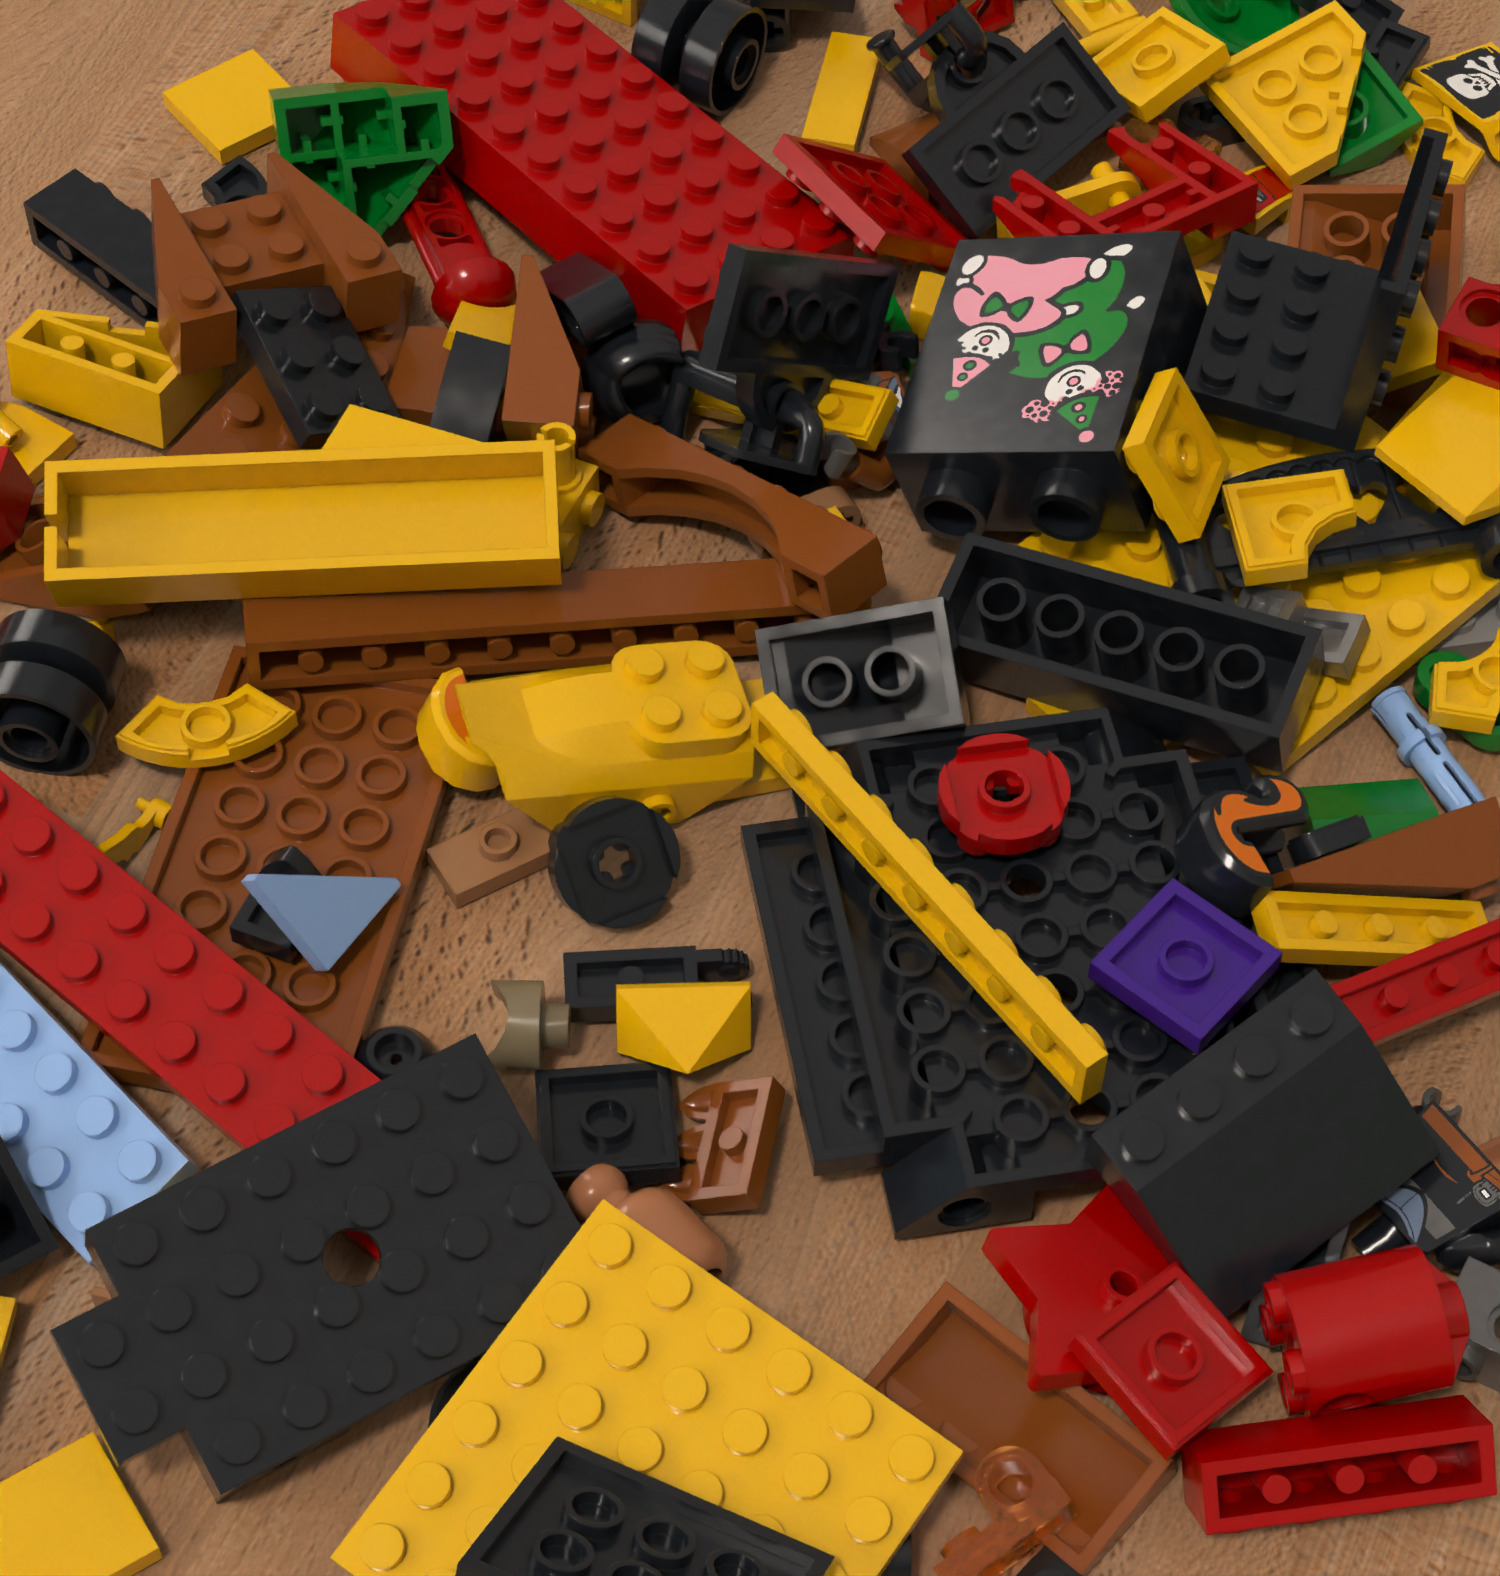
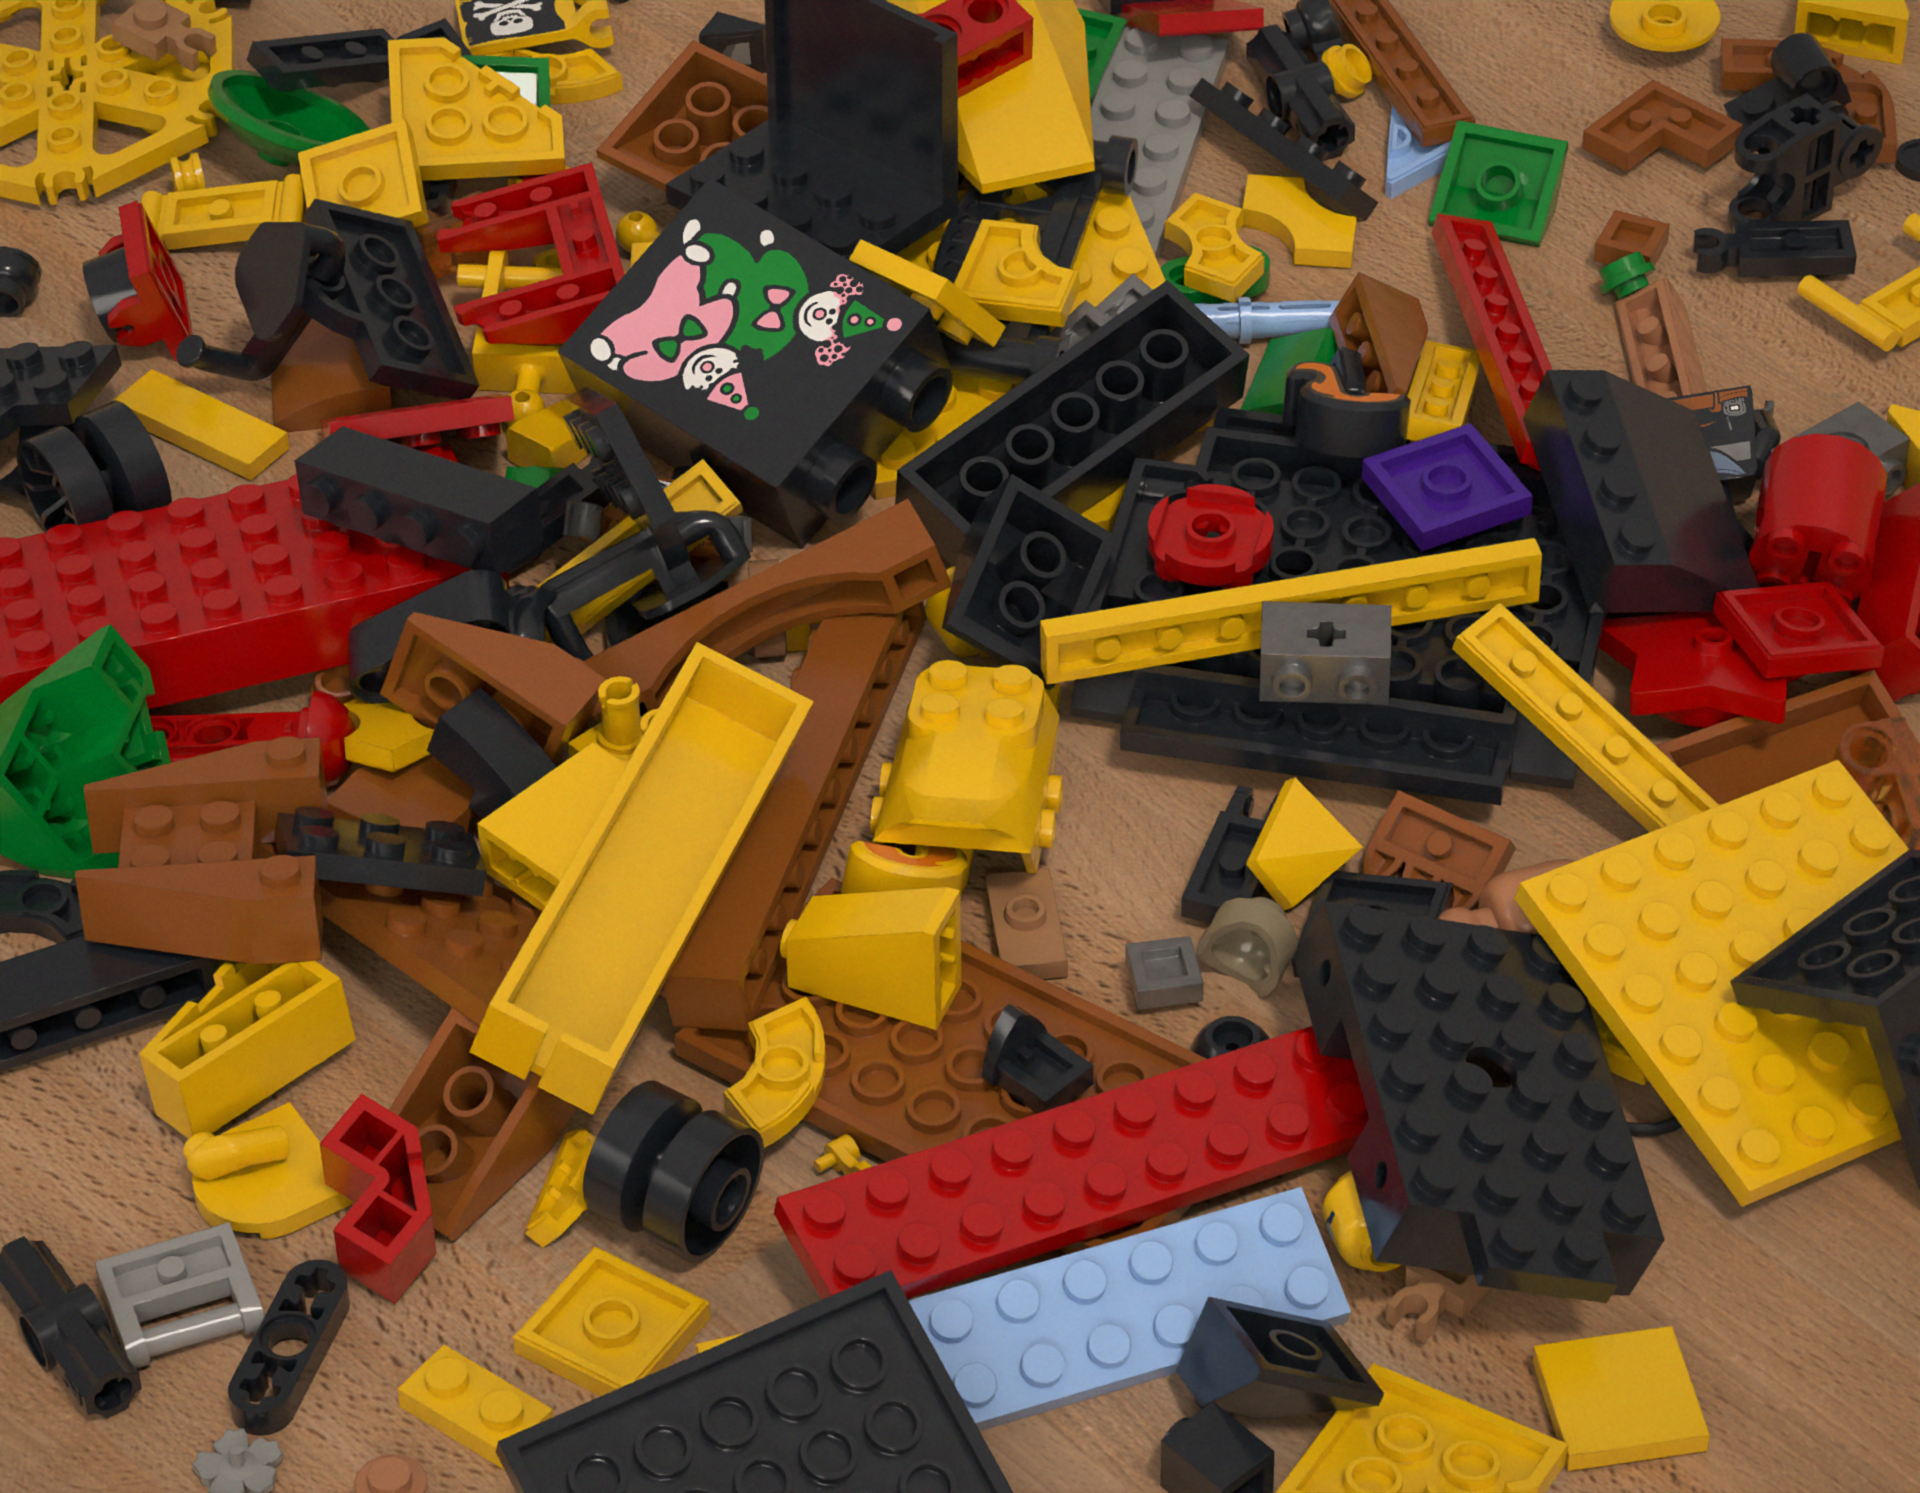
camera: 65 degrees left, 10 degrees down
(321, 911) = (1072, 1027): light blue tile -> none
(345, 742) = (880, 951): none -> yellow slope
(466, 971) = (1164, 972): none -> flat silver plate
(646, 877) = (1104, 832): black plate -> none
(688, 217) = (419, 501): none -> black brick
(872, 938) = (1325, 653): none -> flat silver brick
(913, 1211) = (1580, 721): none -> yellow tile

